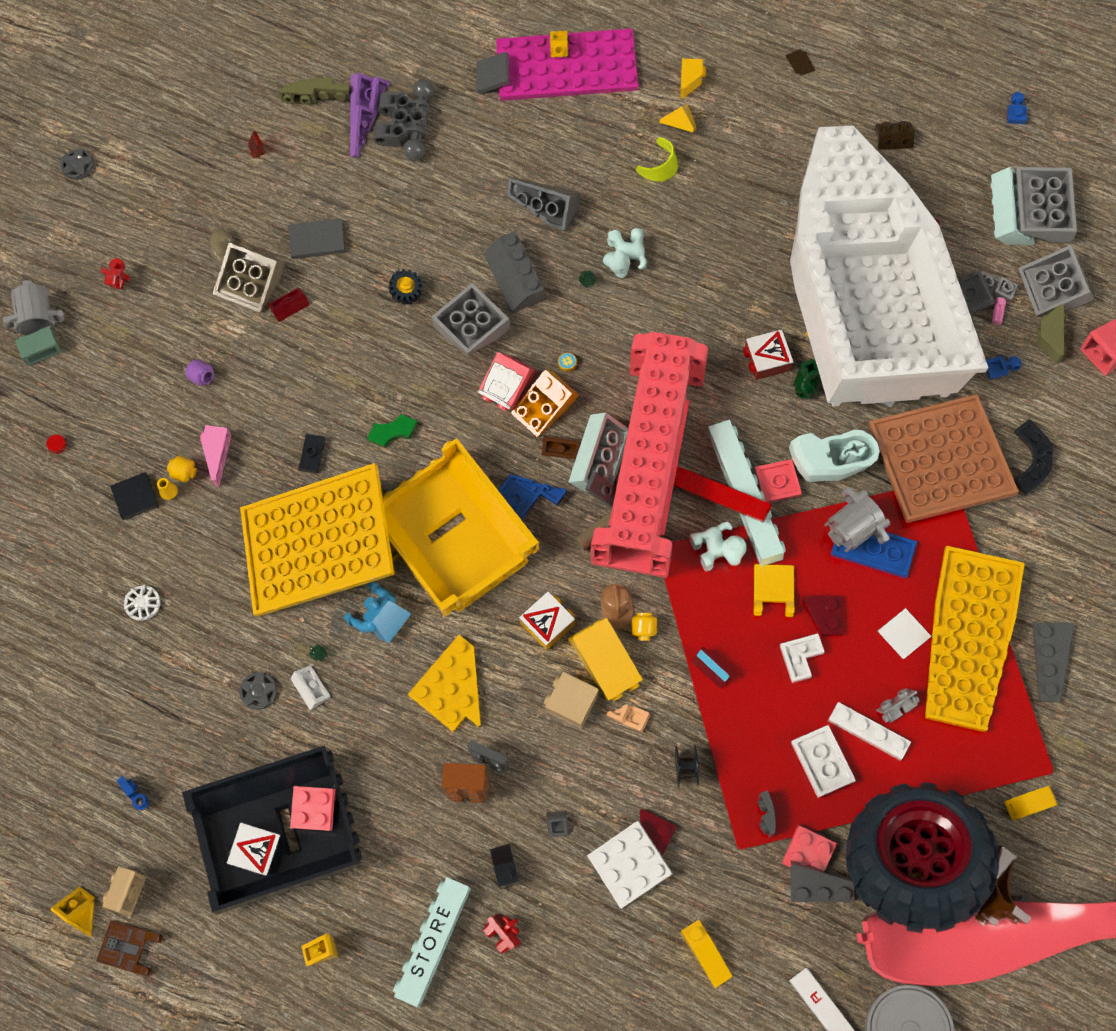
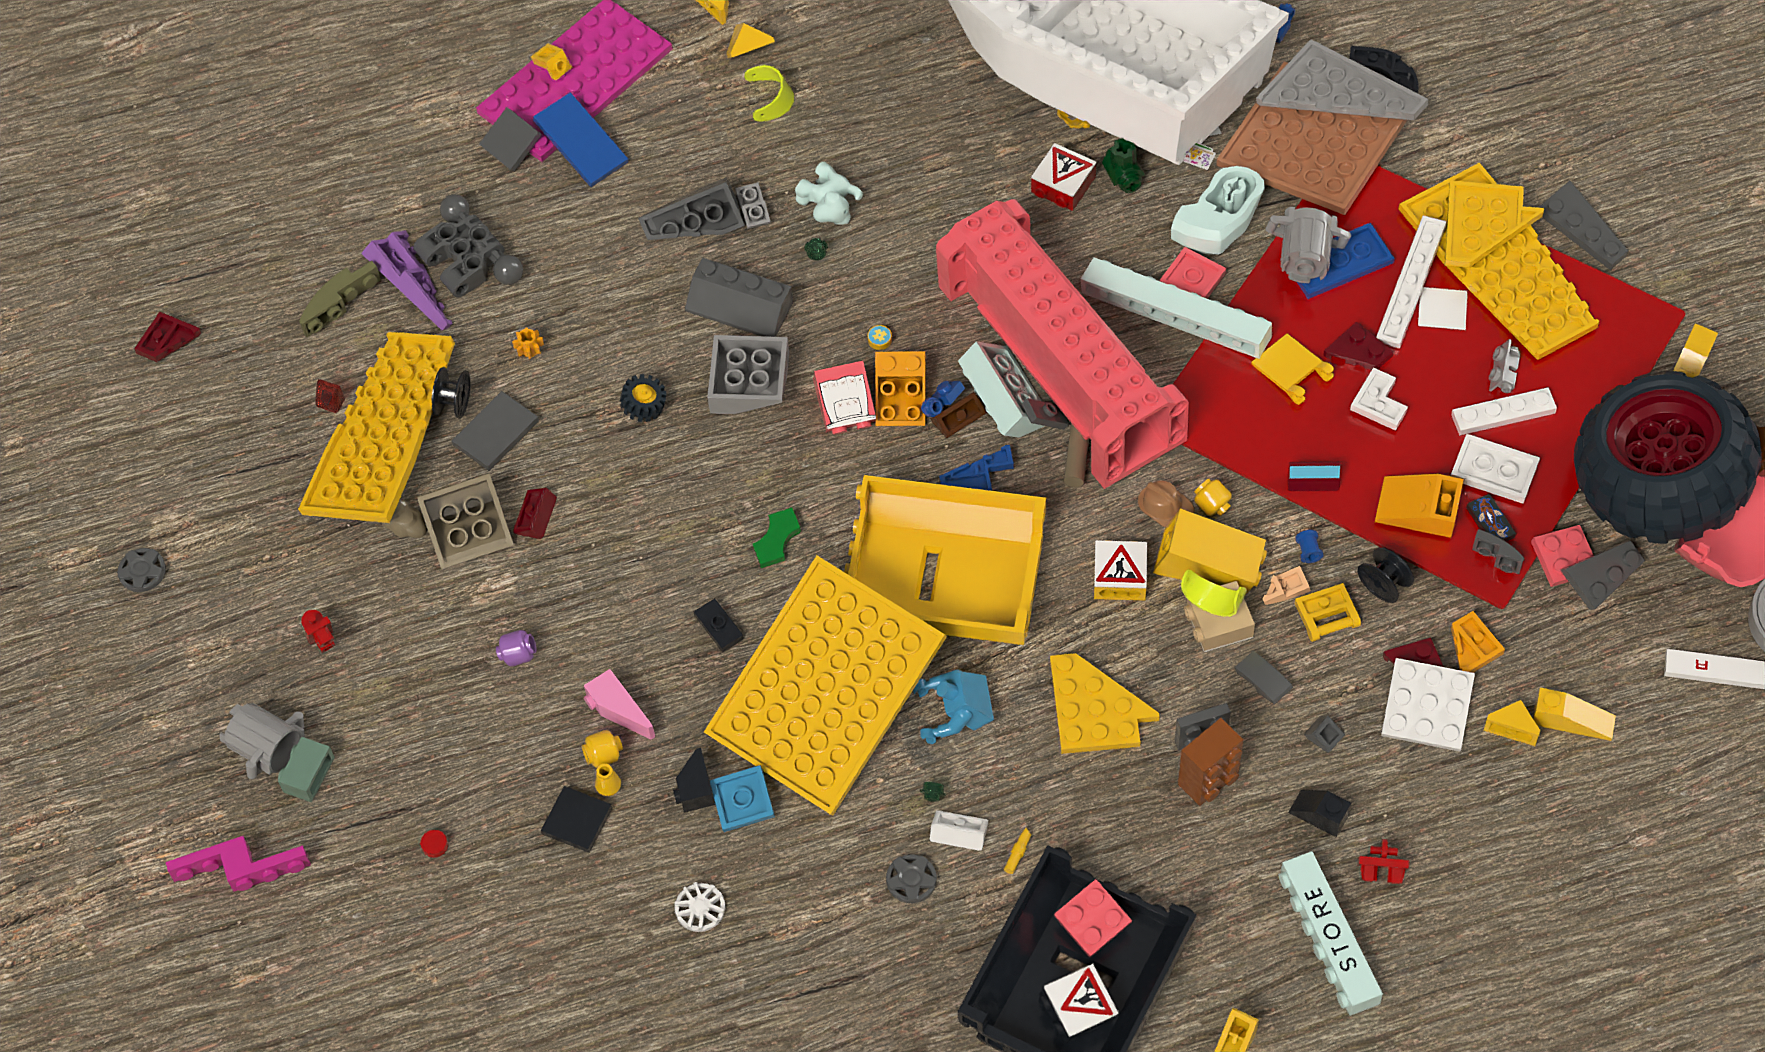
camera: 45 degrees left, 10 degrees down
(207, 531) = (693, 784): none -> black slope
(213, 41) = (165, 336): none -> dark red wing
(220, 563) = (742, 798): none -> dark azure plate
(254, 191) = (382, 432): none -> yellow wing
(318, 197) = (442, 390): none -> black piece
(327, 729) = (1017, 851): none -> yellow piece
(381, 202) = (528, 343): none -> light orange gear
(528, 104) = (580, 139): none -> blue tile
(557, 759) = (1264, 677): none -> dark grey slope
(562, 428) = (945, 395): none -> blue plate
(572, 683) = (1210, 596): none -> neon yellow piece
(581, 223) = (752, 205): none -> light grey slope
(637, 748) = (1326, 604): none -> yellow plate
(666, 922) = (1513, 723): none -> yellow slope
(667, 706) = (1309, 546): none -> blue bush
(696, 854) = (1474, 643): none -> light orange wing
(722, 494) = (1171, 319): red tile -> none
(731, 549) = (1220, 362): light aqua animal -> none
(754, 741) = (1420, 502): none -> light orange slope
(787, 790) = (1490, 518): none -> tile
(865, 411) = (1199, 156): none -> sticker
(900, 600) = (1411, 281): none -> white tile
(983, 601) = (1483, 219): none -> yellow wing
(988, 436) = (1335, 84): none -> light grey wing

